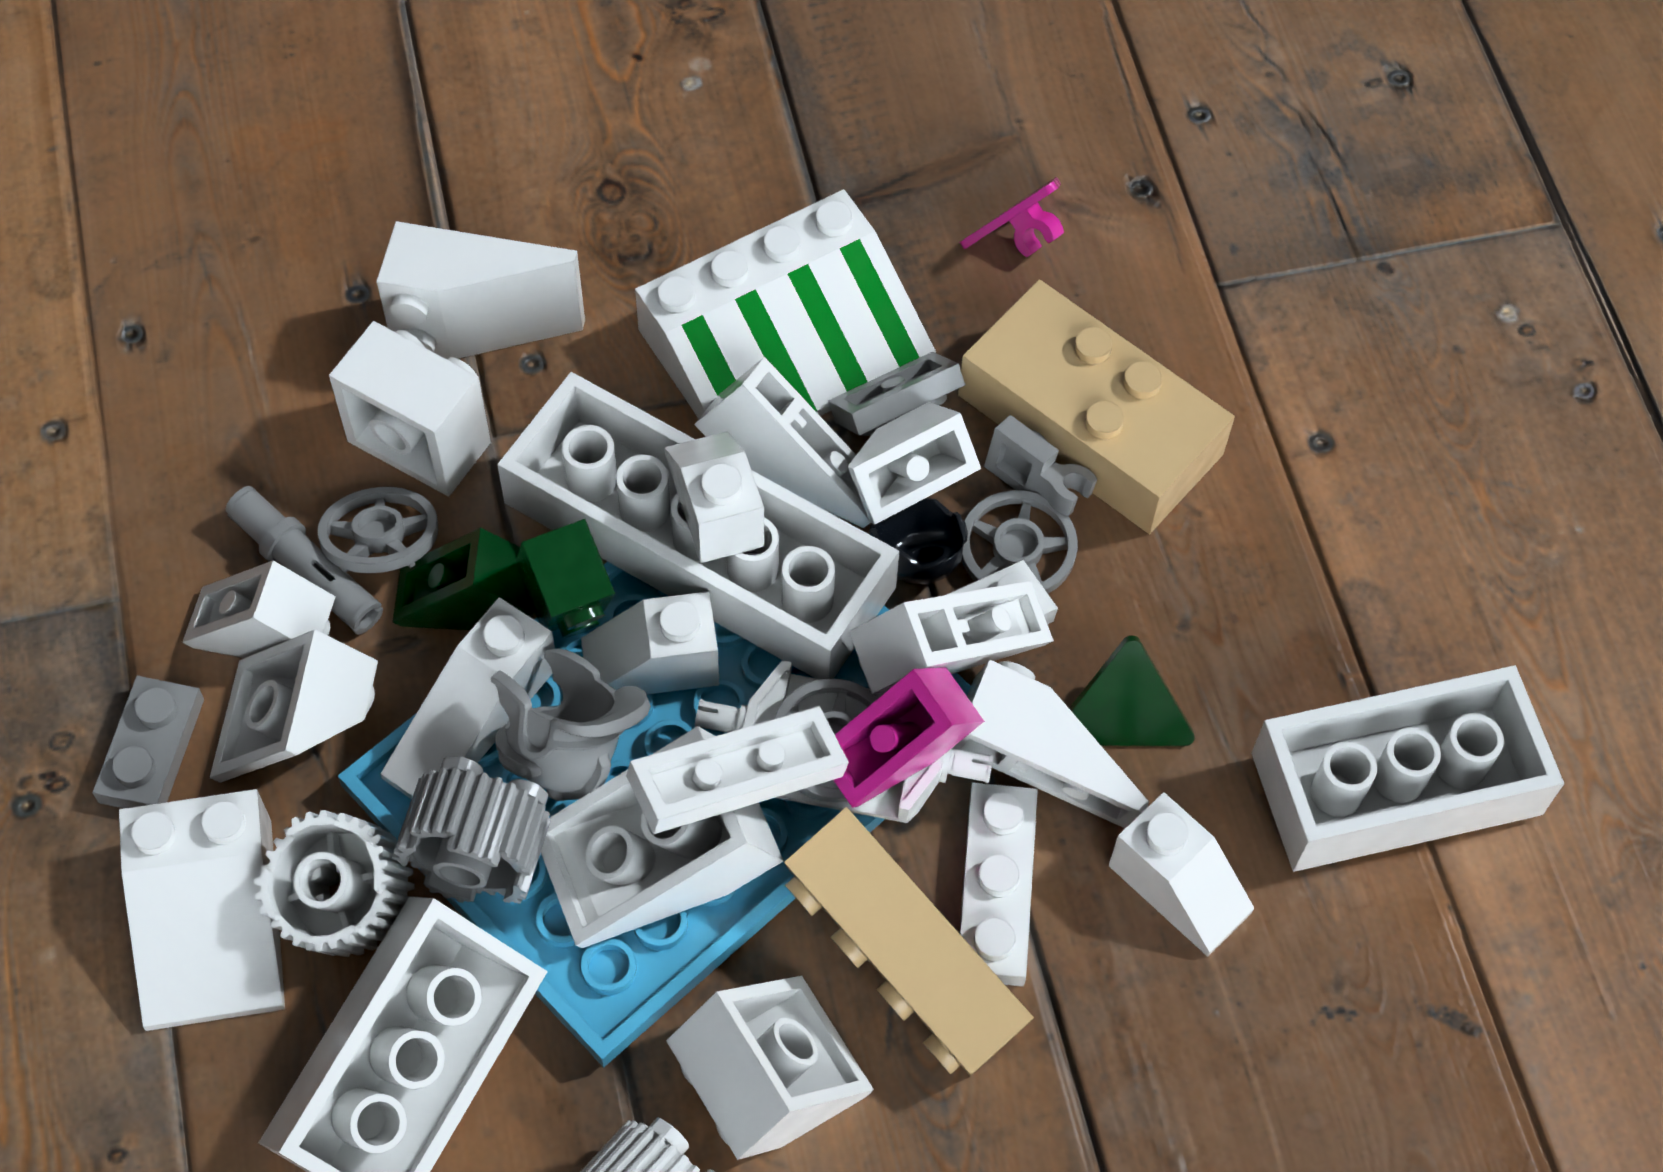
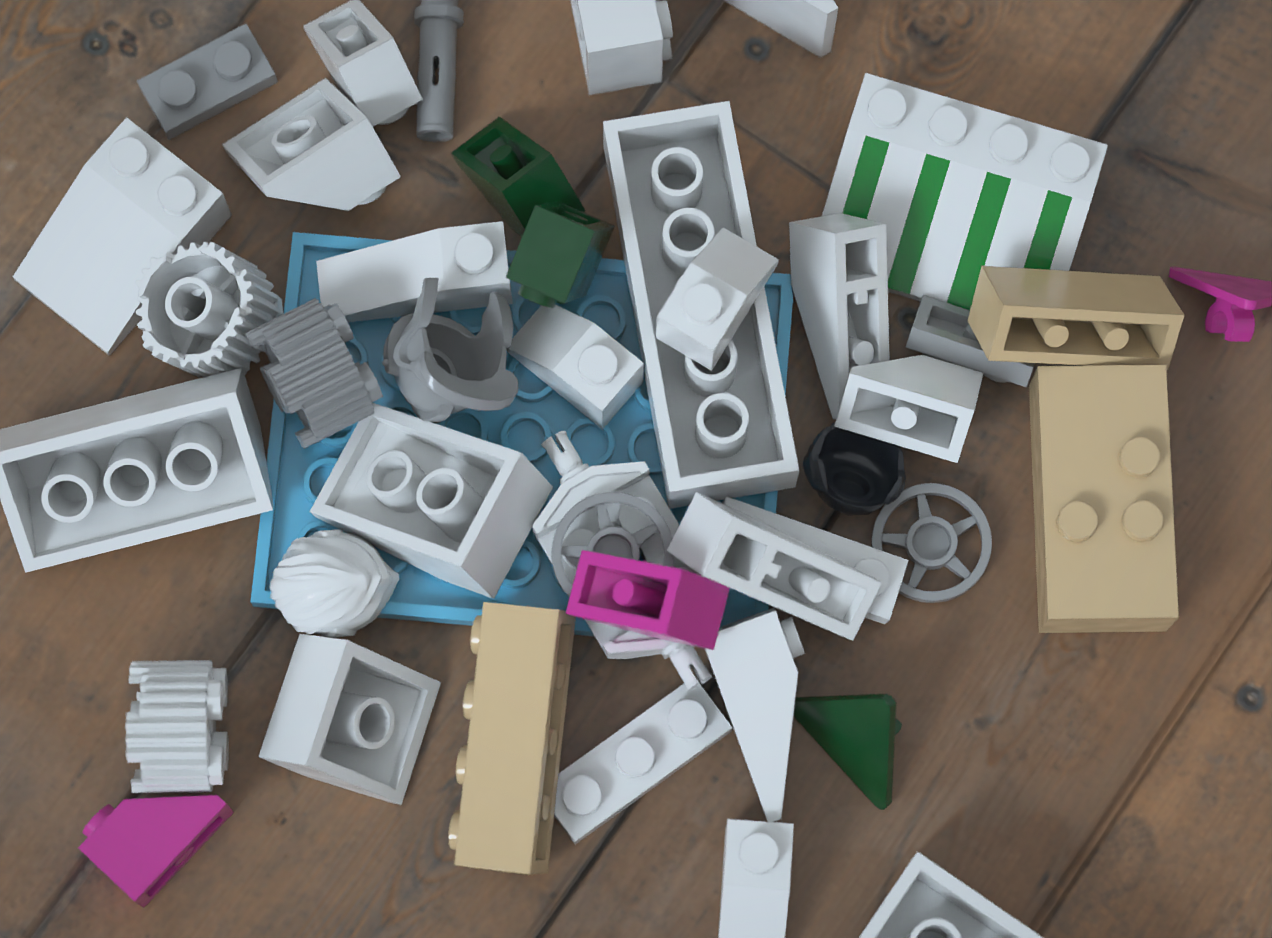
camera: 50 degrees right, 15 degrees up
(378, 530) = (506, 76): light grey wheel -> none
(650, 977) = (331, 584): none -> white hair
(736, 769) = (503, 512): white plate -> none
(947, 308) = (1074, 317): none -> tan brick
(1028, 464) = (1005, 491): light grey plate -> none

